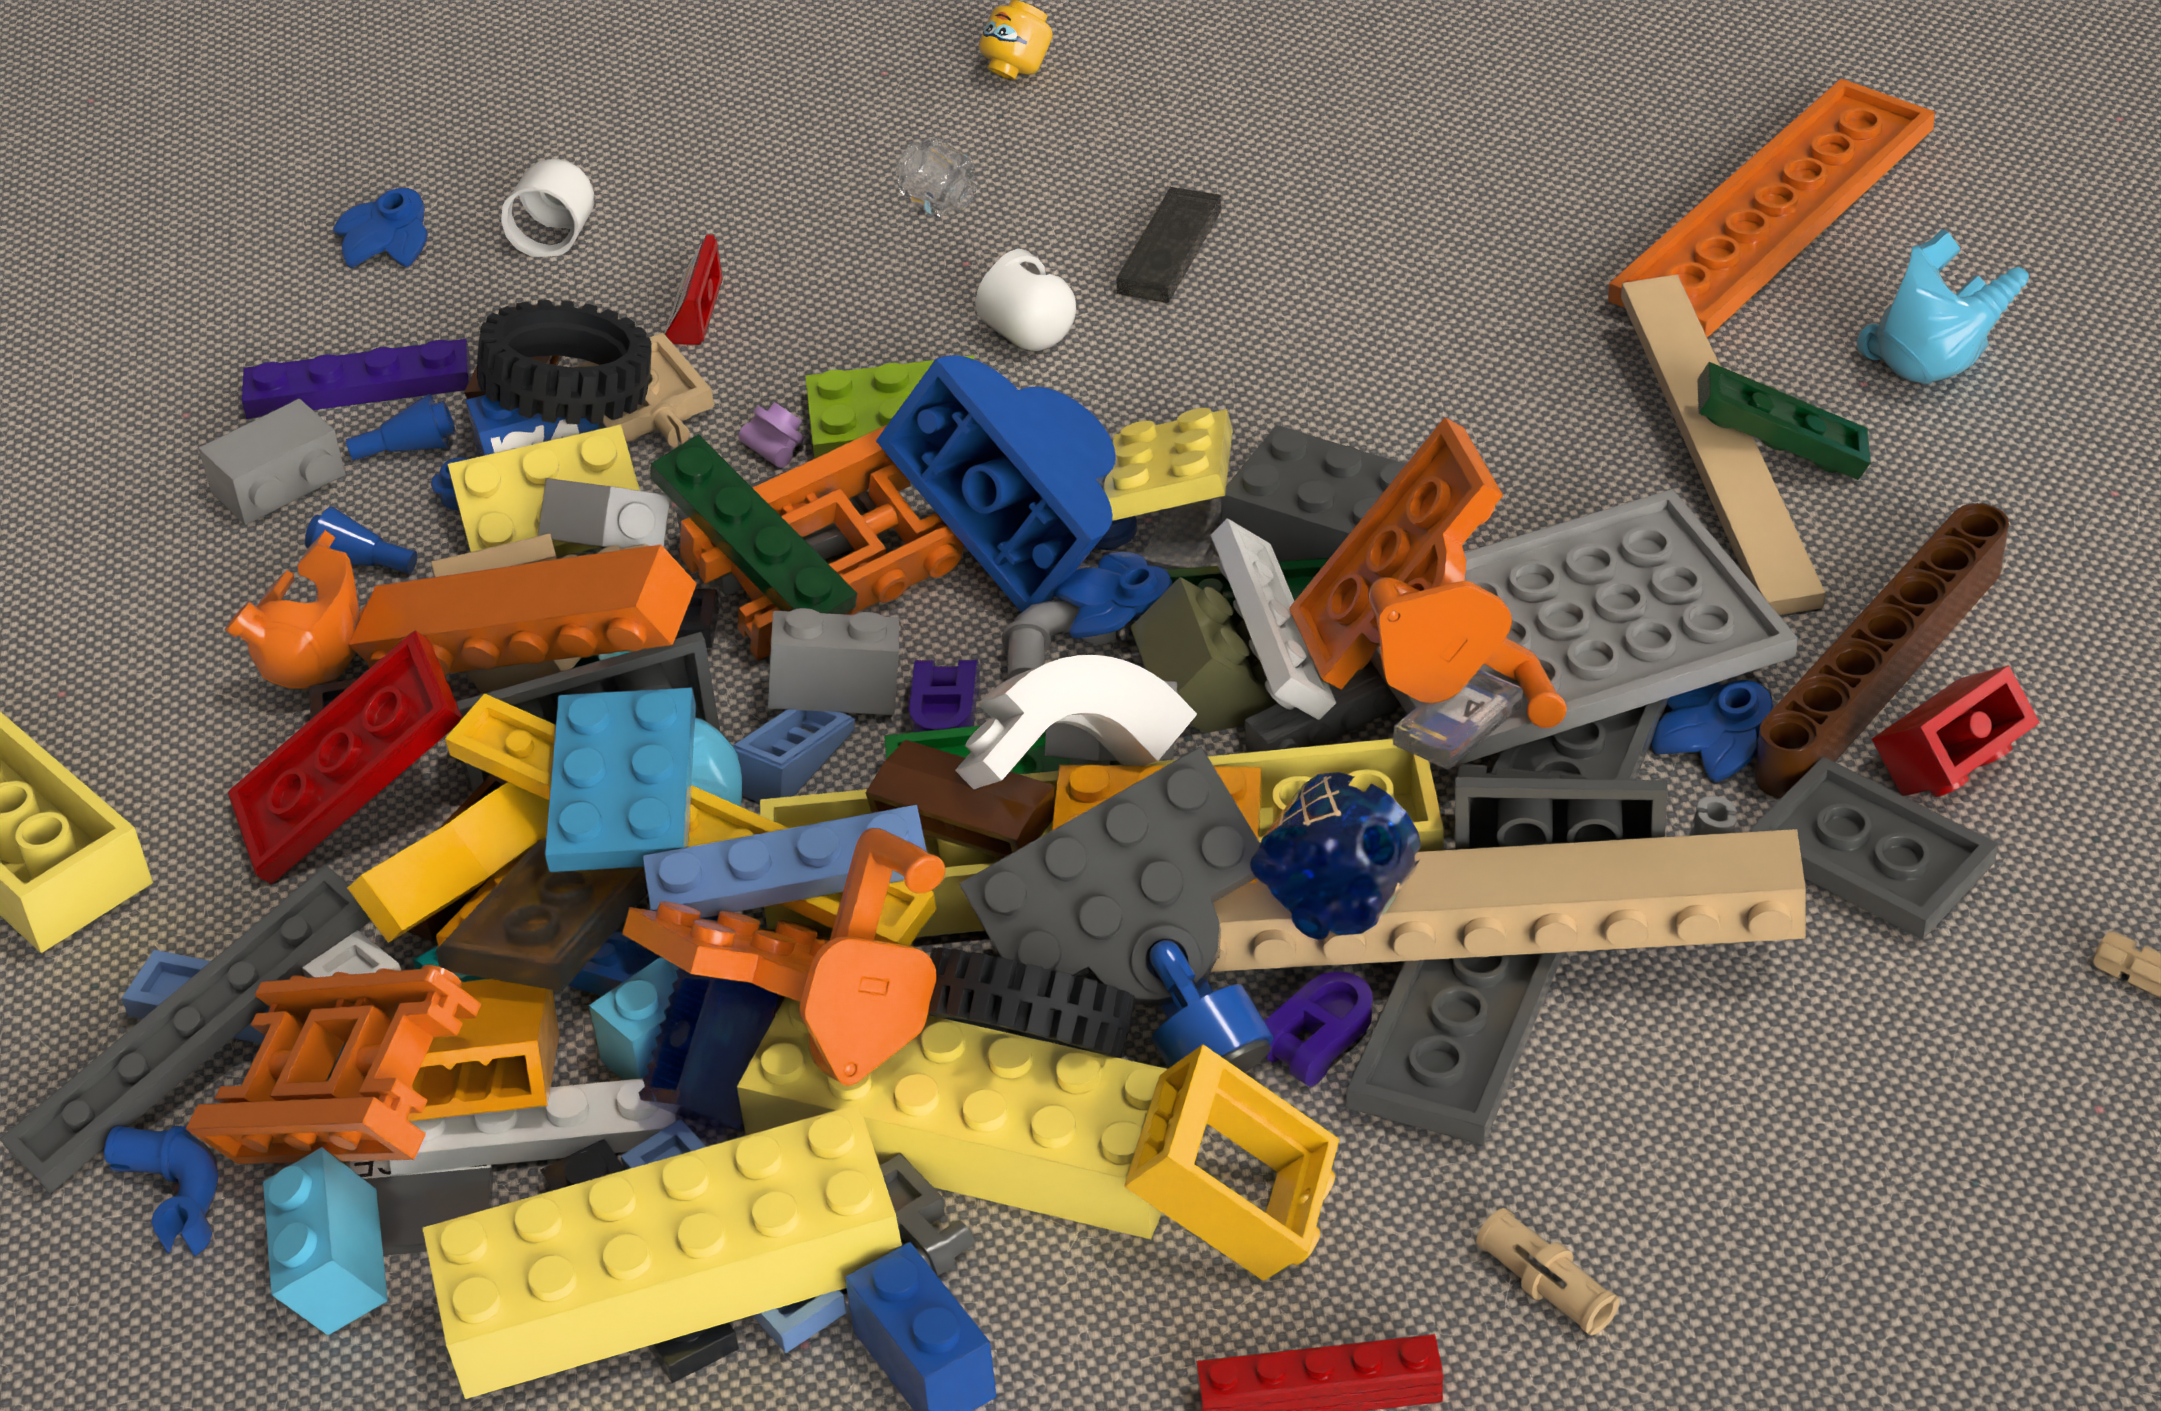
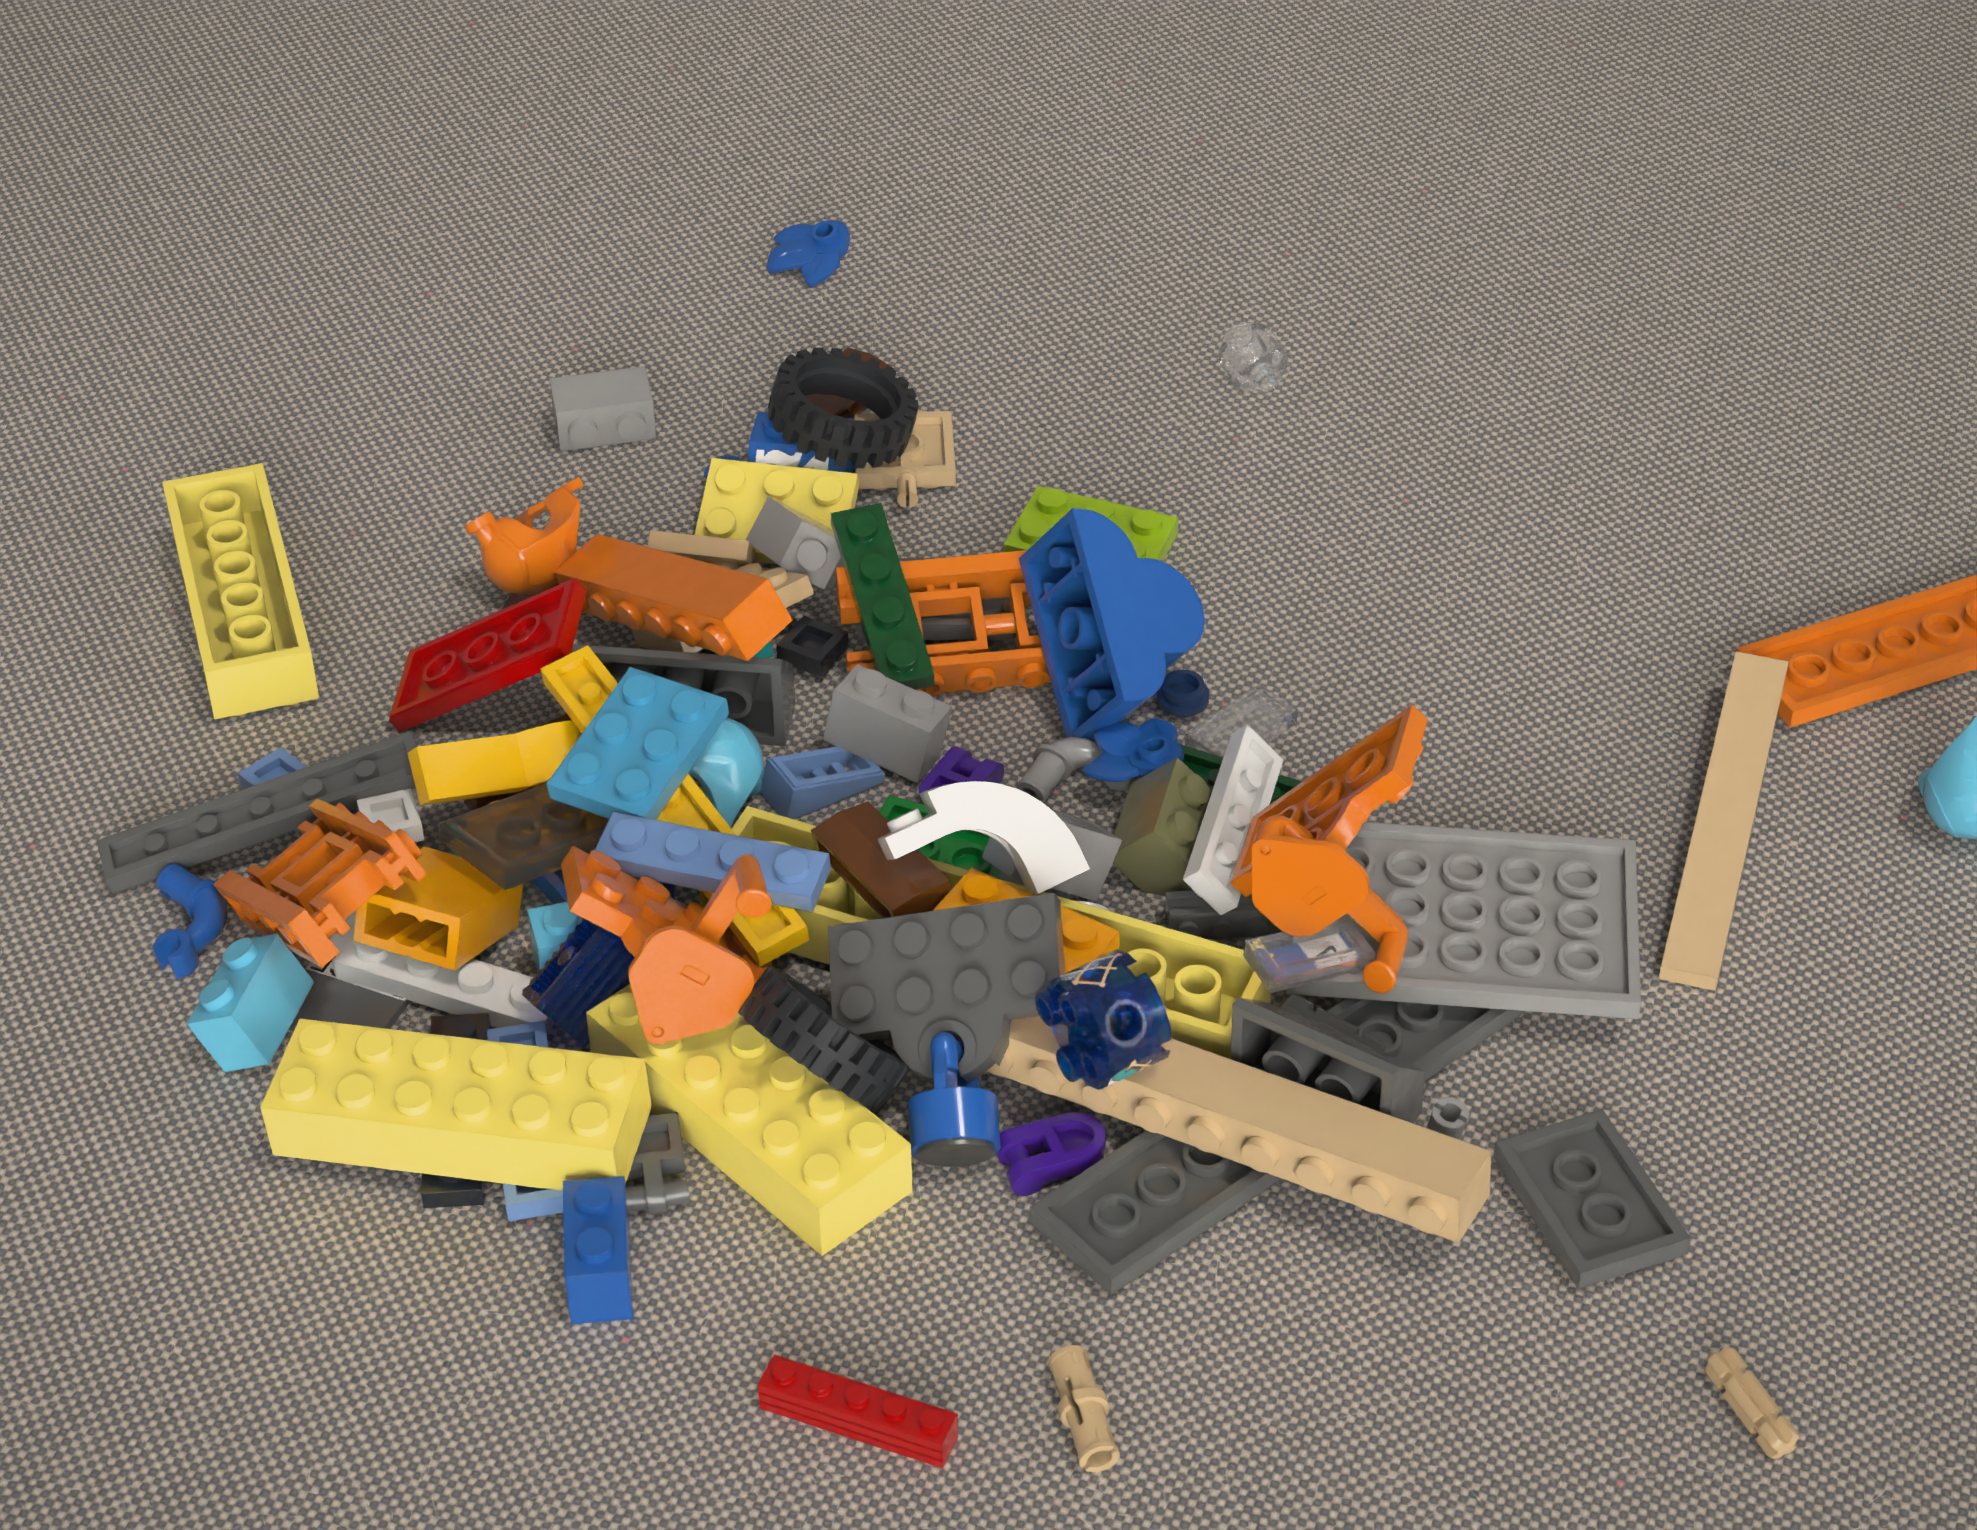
camera: 25 degrees right, 0 degrees up
(358, 377) = (699, 362): dark purple plate -> none
(359, 542) = (611, 489): blue cone -> none
(415, 428) = (725, 420): blue cone -> none
(555, 196) = (948, 269): white helmet -> none
(696, 296) = (1002, 390): red slope -> none
(772, 434) = (982, 524): lavender plate -> none
(1015, 39) = (1398, 261): yellow head -> none
(1025, 305) = (1241, 494): white helmet -> none
(1163, 1171) = (932, 1196): yellow window -> none
(1169, 244) = (1404, 481): clear smoke tile -> none
(1169, 463) = (1253, 663): light yellow plate -> none
(1305, 492) = (1335, 714): dark grey brick -> none
(1713, 724) = (1543, 1049): blue plate -> none
(1783, 421) = (1783, 820): dark green plate -> none
(1882, 647) = (1730, 1040): reddish brown beam -> none
(1956, 732) = (1723, 1134): red brick -> none

